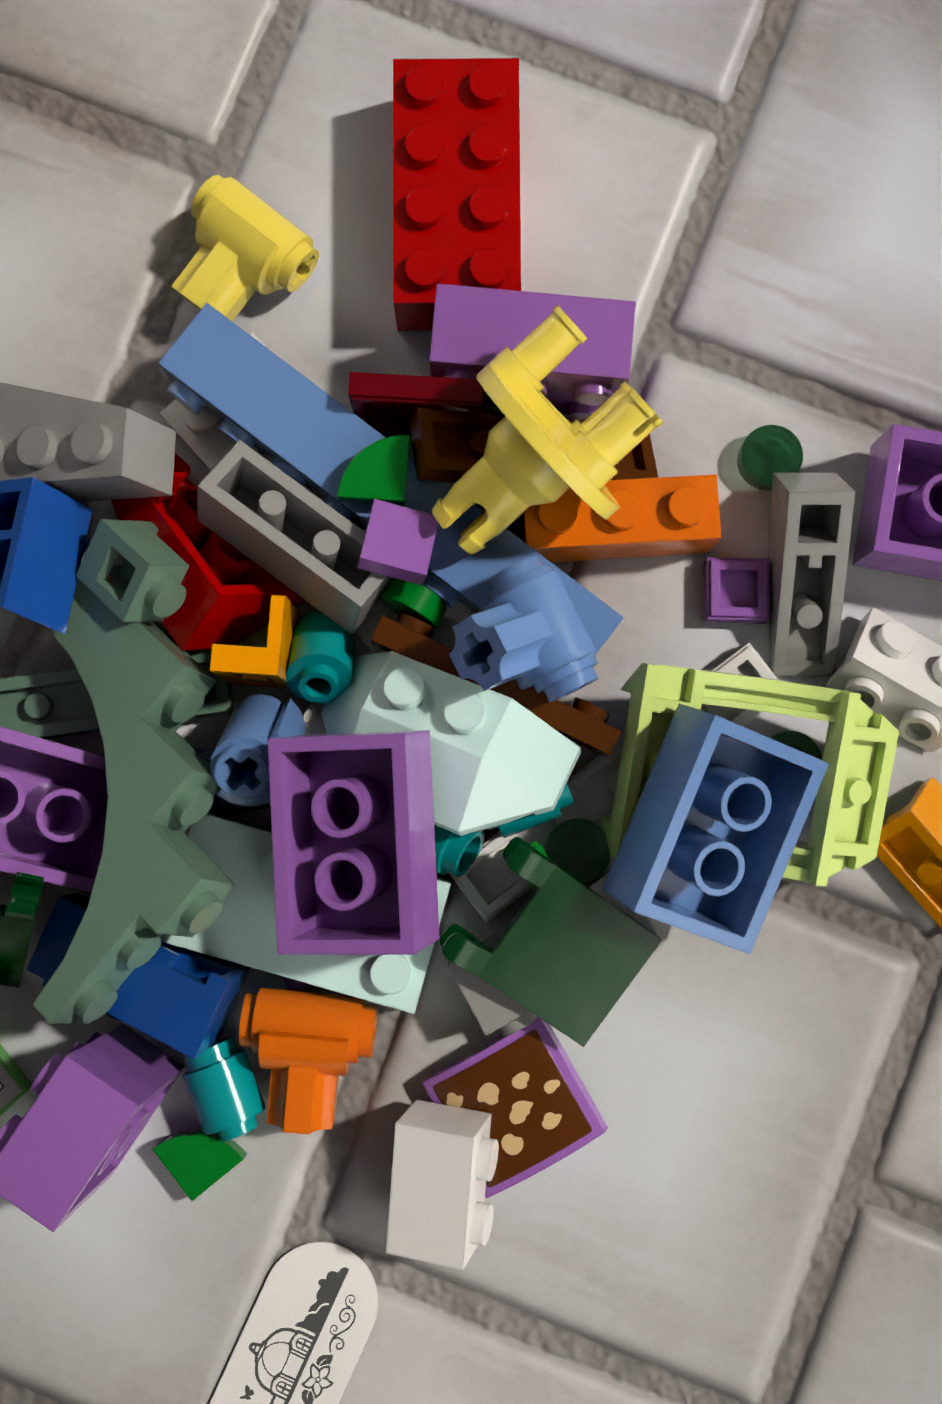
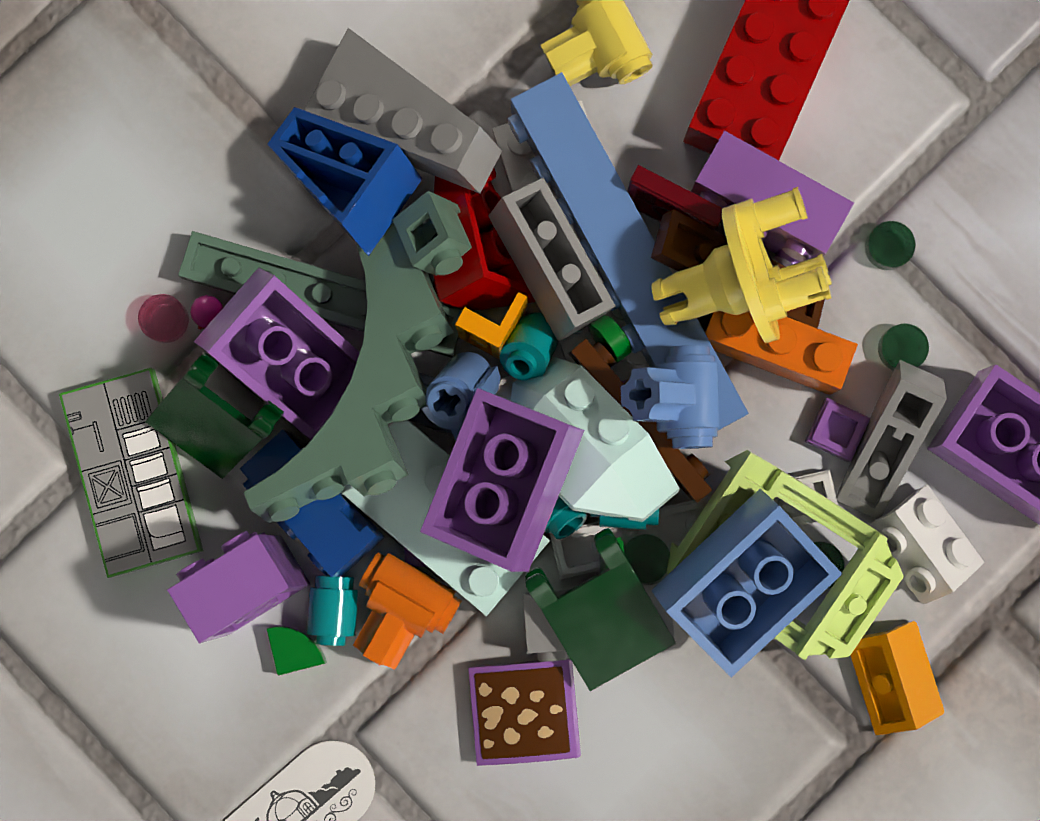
camera: 25 degrees right, 0 degrees up
(378, 473) = (626, 242): green tile -> none
(398, 542) = (619, 294): medium lavender tile -> none
(440, 1184) = (452, 739): white brick -> none
(699, 343) = (890, 245): none -> clear green tile

